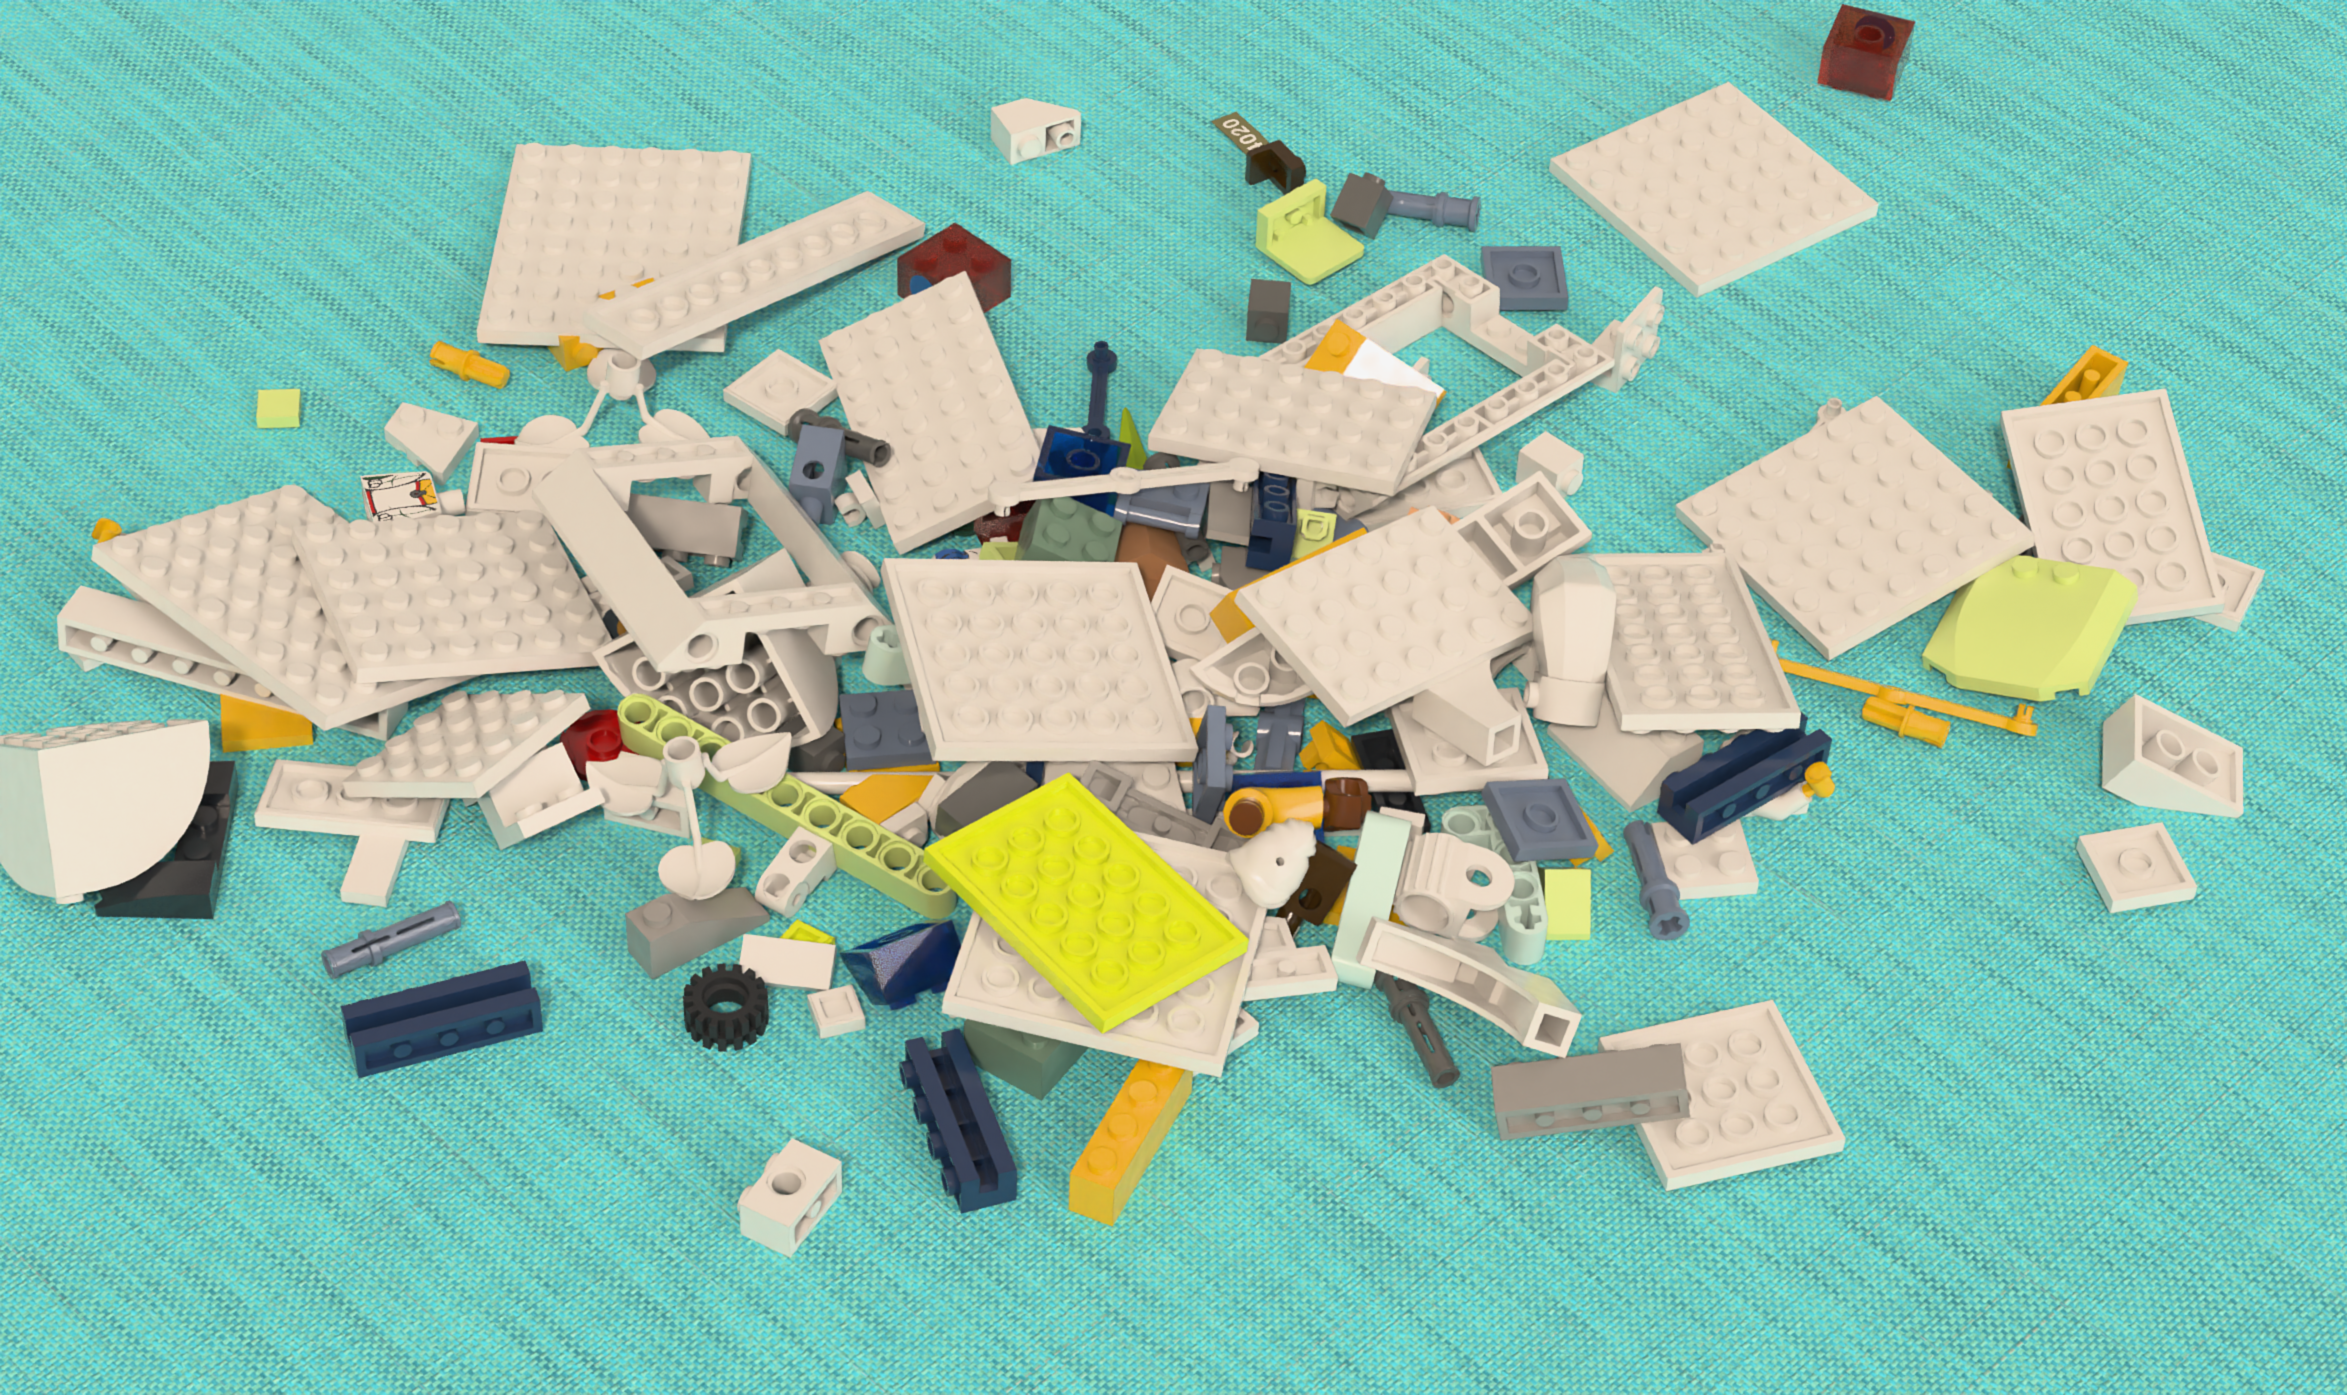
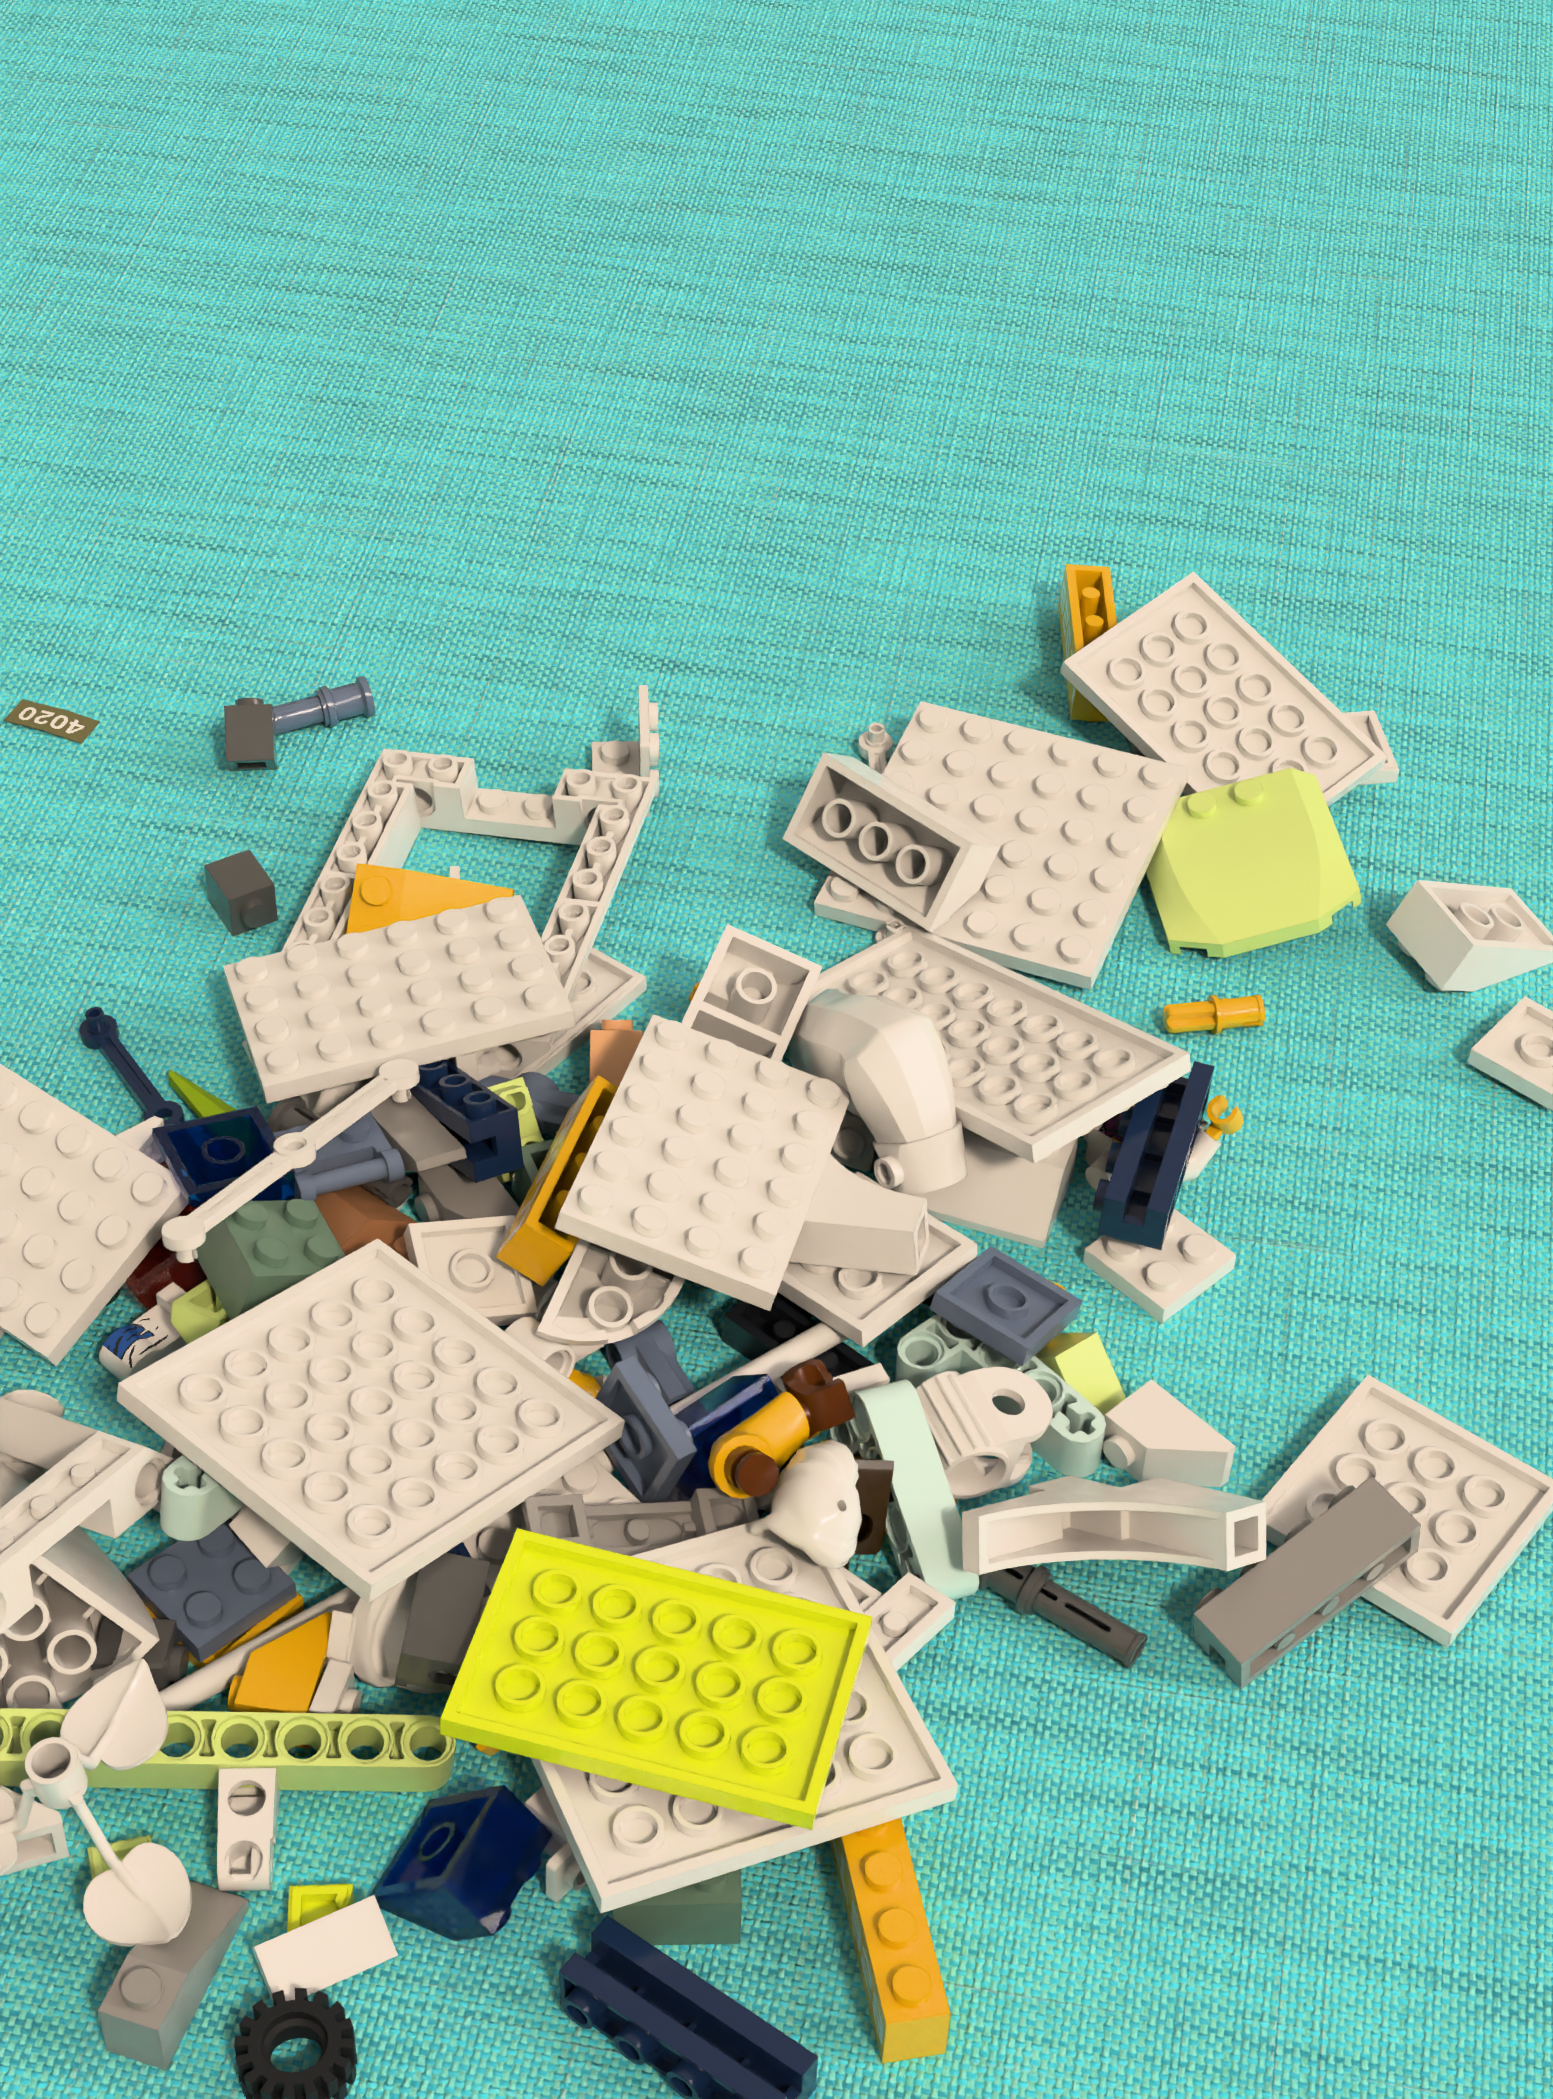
camera: 35 degrees left, 0 degrees up
(836, 1011) = (424, 1977): white tile -> none
(1277, 164) = (125, 735): dark brown bracket -> none
(1300, 236) = (213, 800): yellowish green bracket -> none
(1328, 750) = (716, 1347): yellow tile -> none
(1526, 276) = (471, 730): sand blue plate -> none
(1556, 461) = (666, 923): white brick -> none
(1583, 964) = (1161, 1437): none -> white slope
(1658, 892) = (1158, 1320): sand blue pin -> none
(1713, 188) = (566, 573): white plate -> none
(1753, 481) = (889, 841): none -> white slope
(1866, 52) = (606, 380): clear red brick -> none
(2019, 723) = (1313, 965): yellow piece -> none

